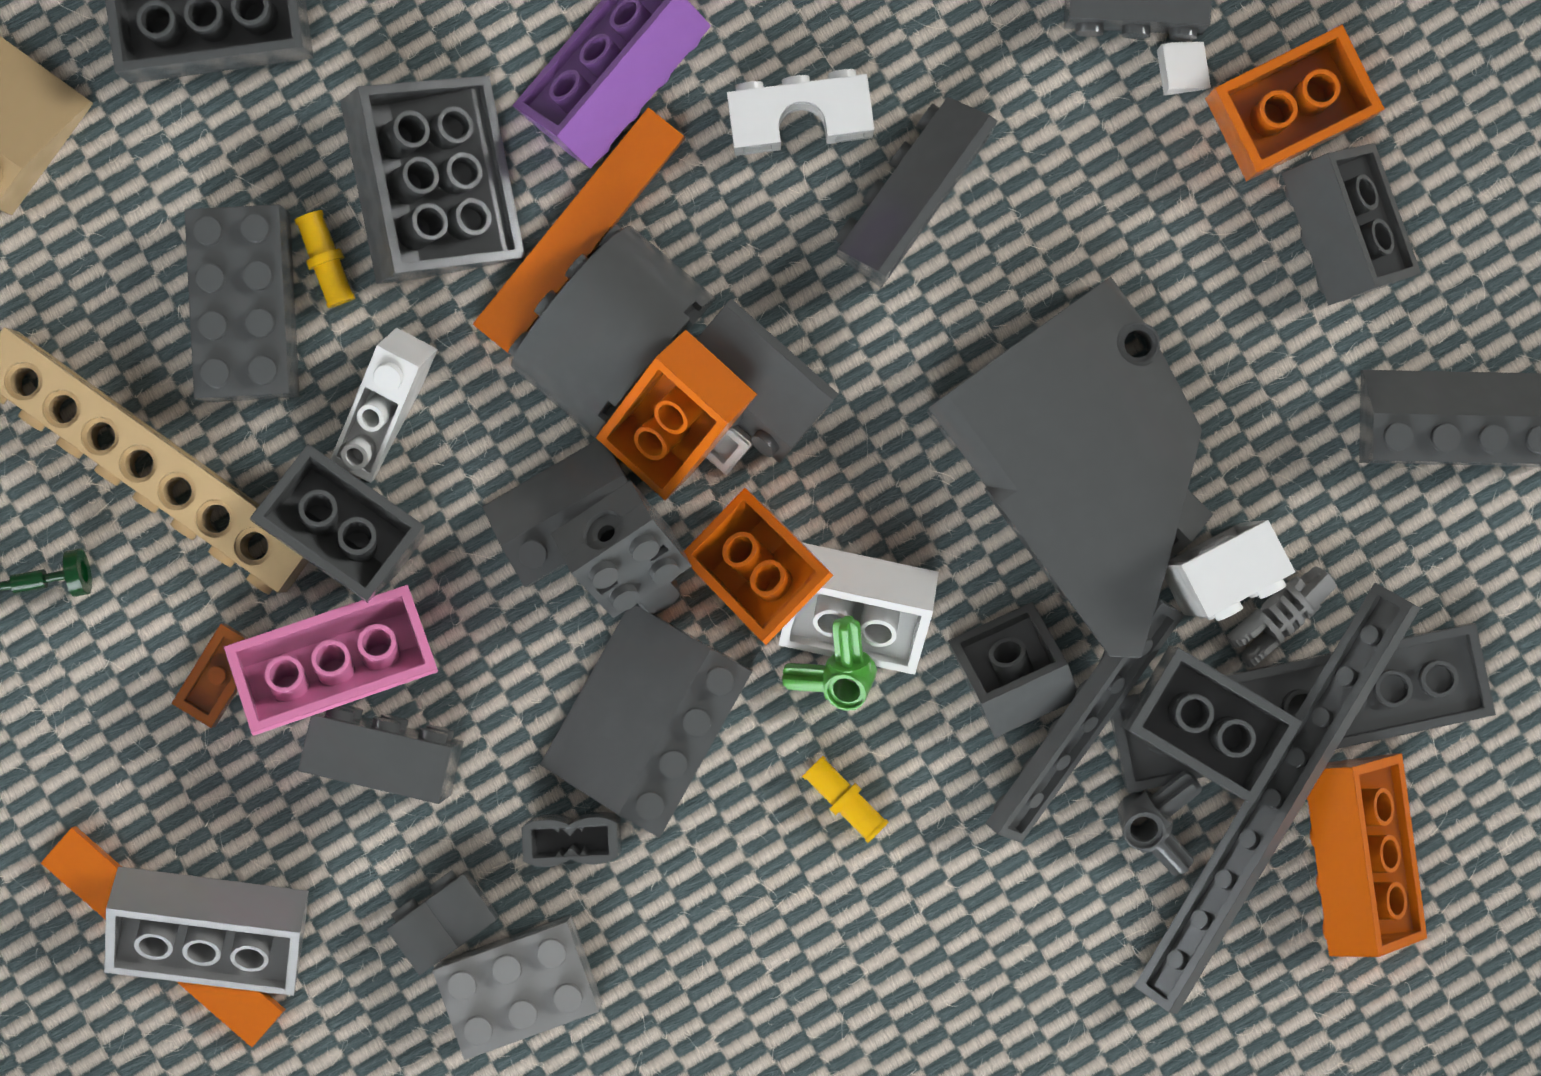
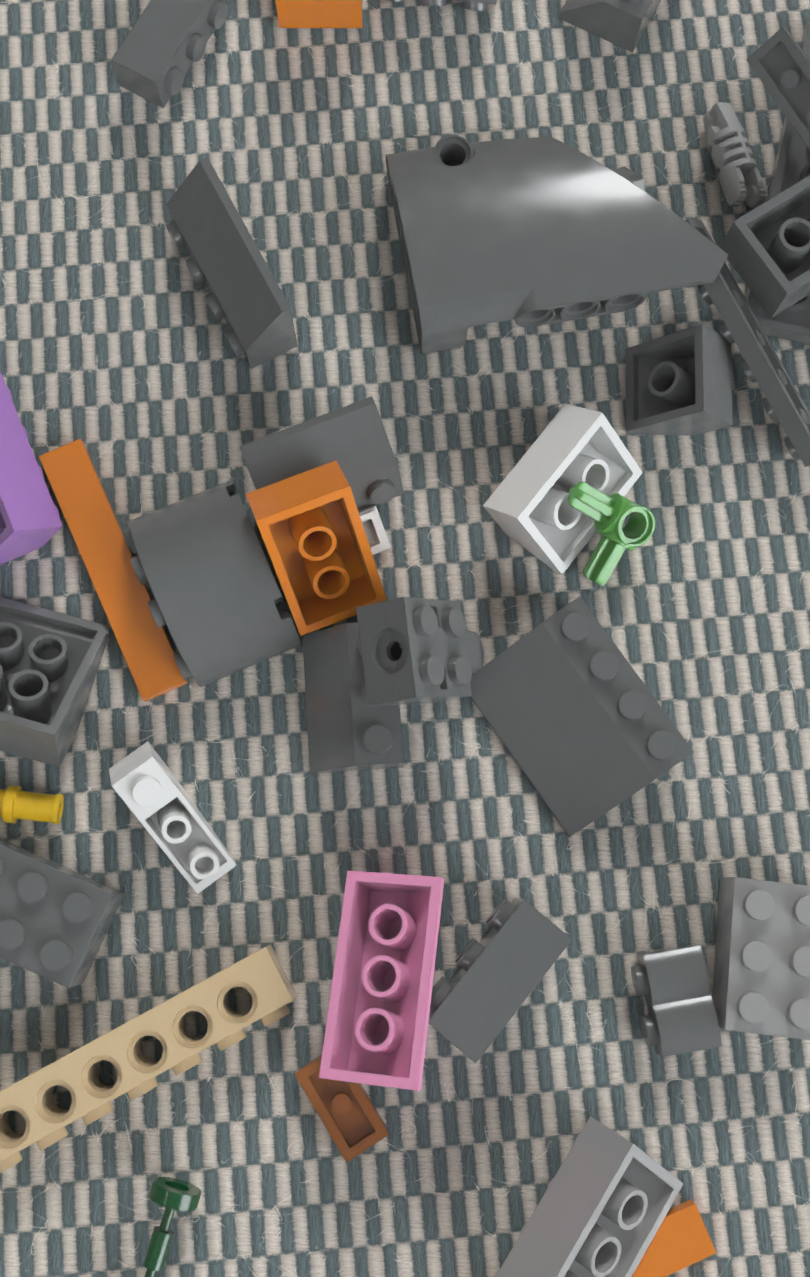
camera: 65 degrees left, 10 degrees down
(339, 524) = (257, 907): dark grey slope -> none
(558, 838) = (659, 824): dark grey brick -> none
(756, 565) = (490, 541): orange slope -> none
(839, 102) = (123, 300): white arch -> none
(845, 799) = (727, 579): yellow pin -> none
(1183, 67) = (244, 33): white slope -> none
(1228, 569) = (686, 148): white brick -> none

